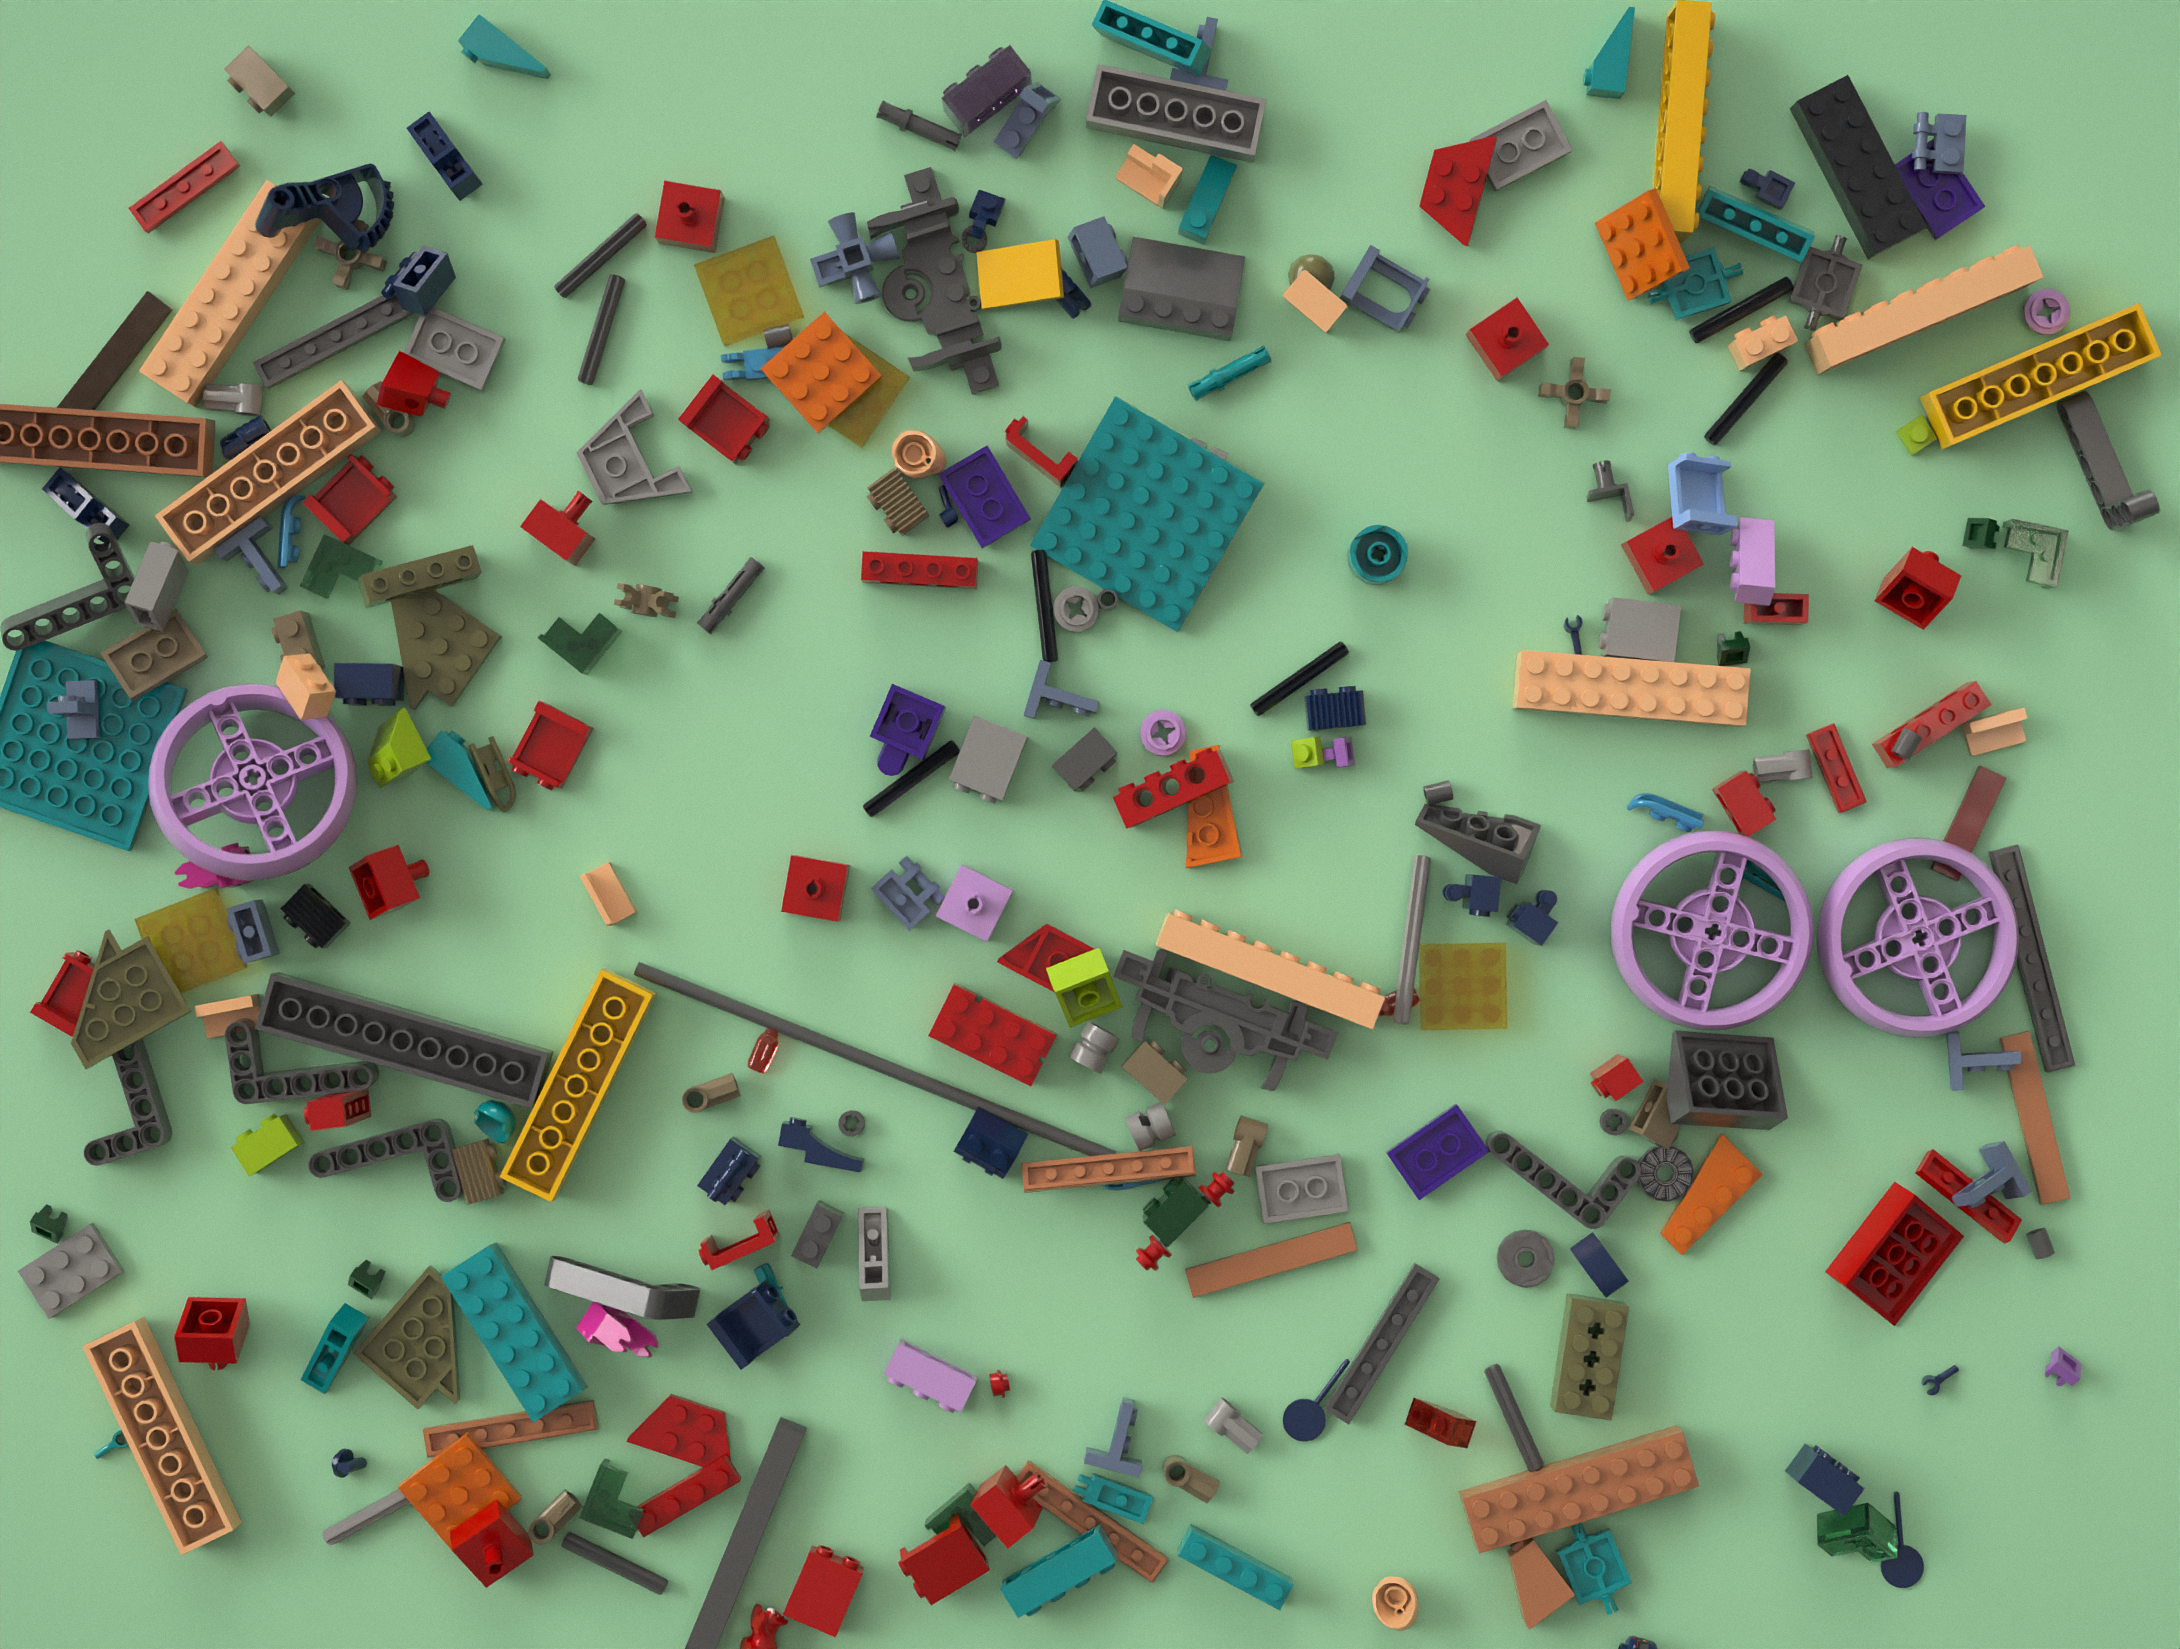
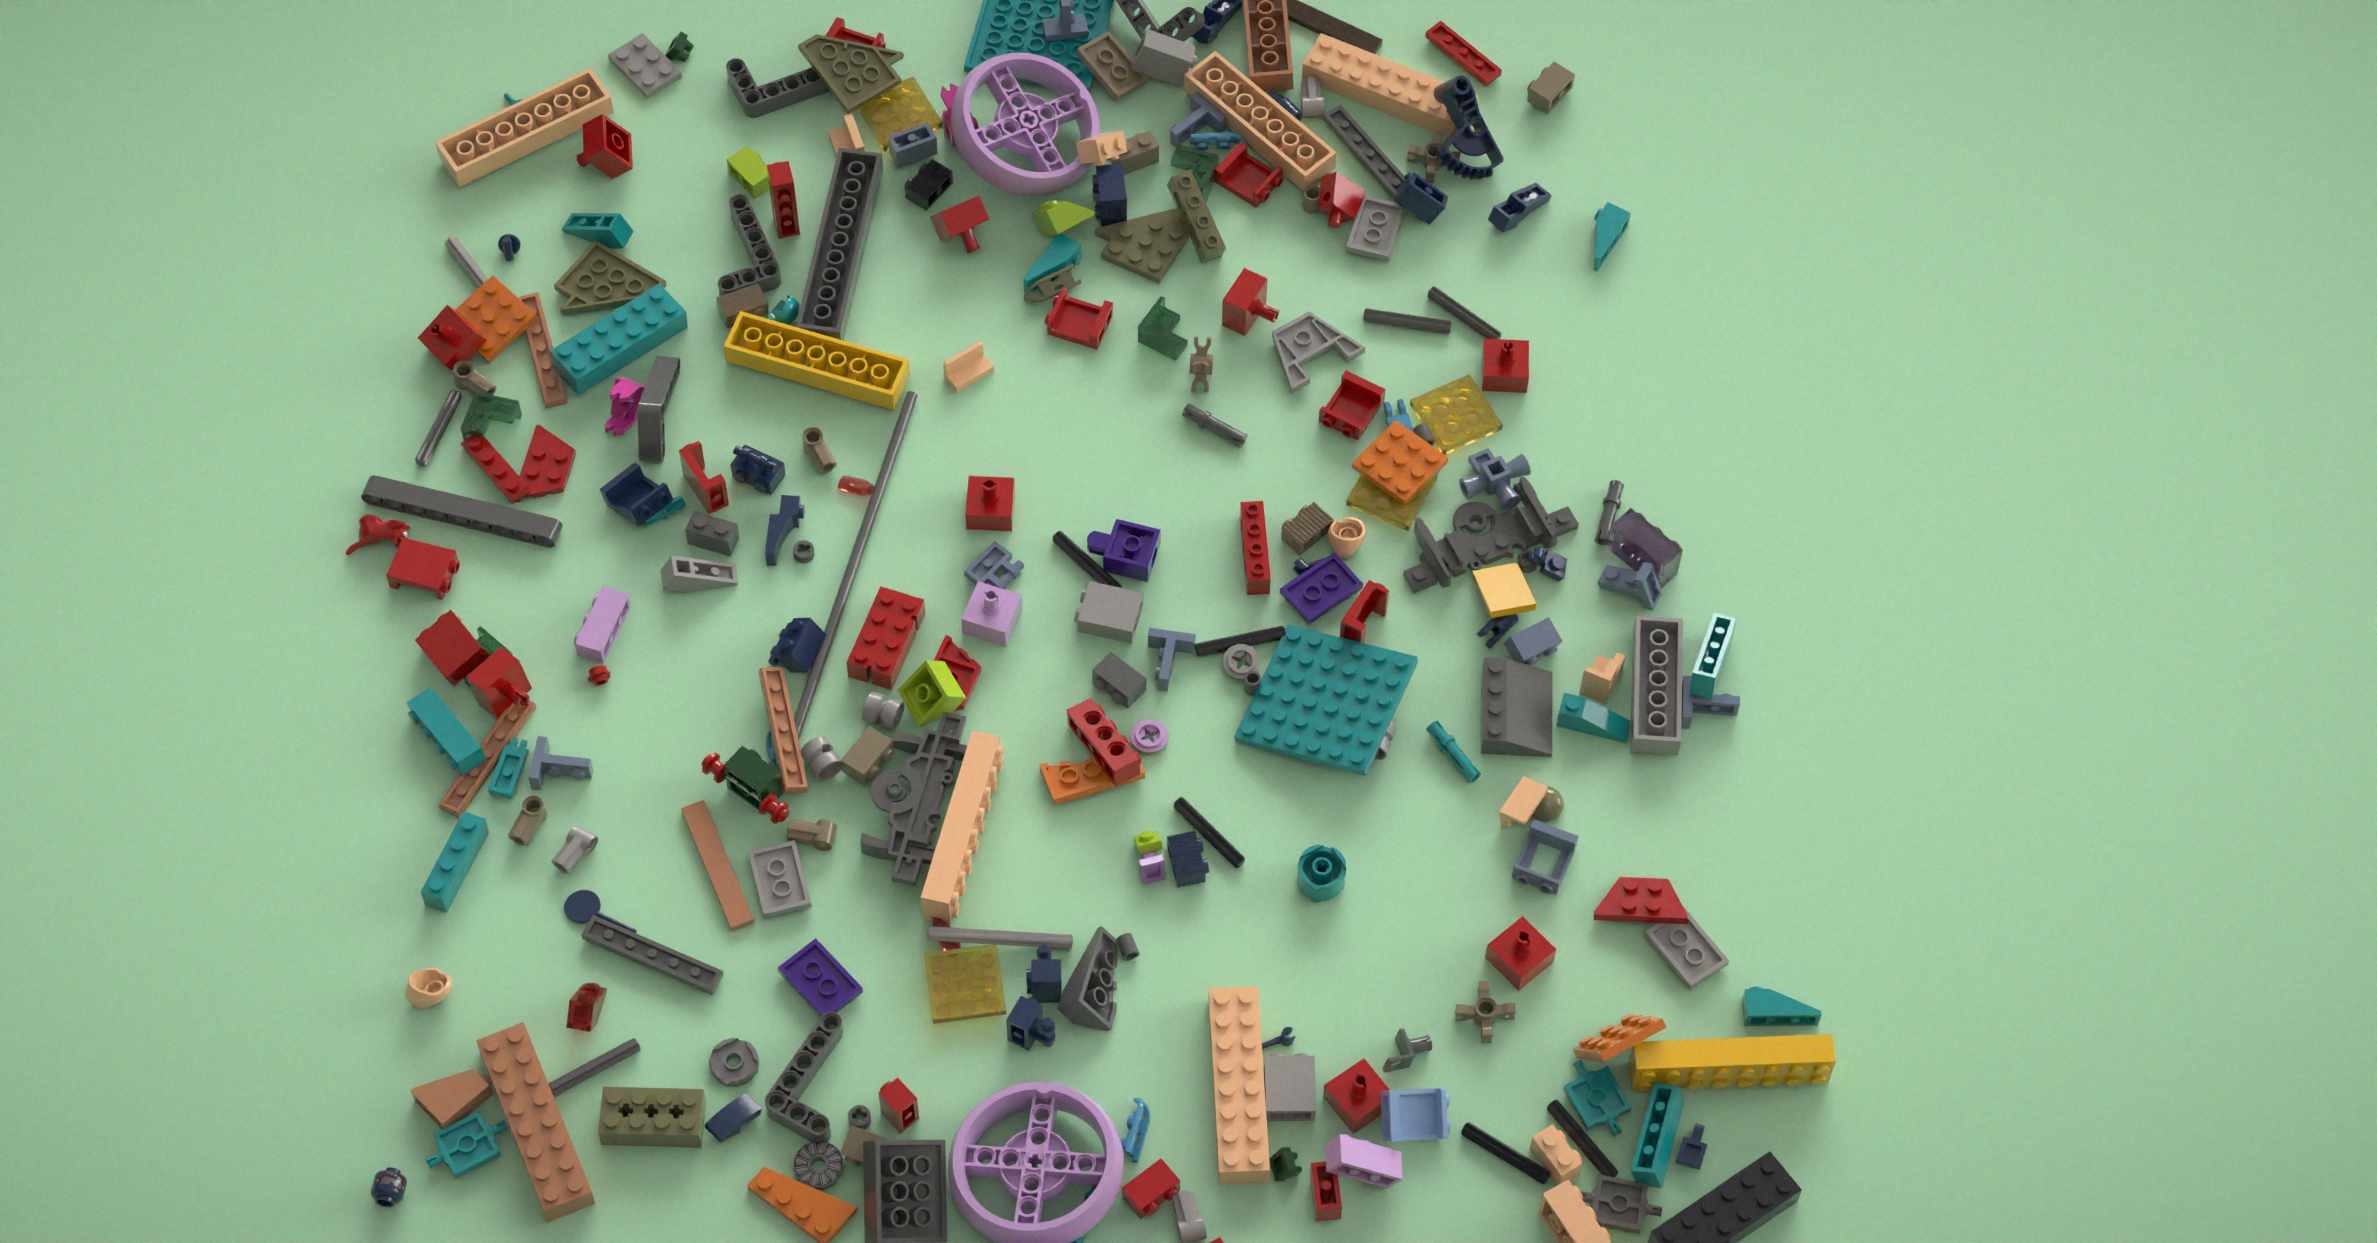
camera: 80 degrees right, 30 degrees down
(290, 1078) = (803, 155): dark grey beam -> none
(366, 1283) = (650, 242): dark green tile -> none

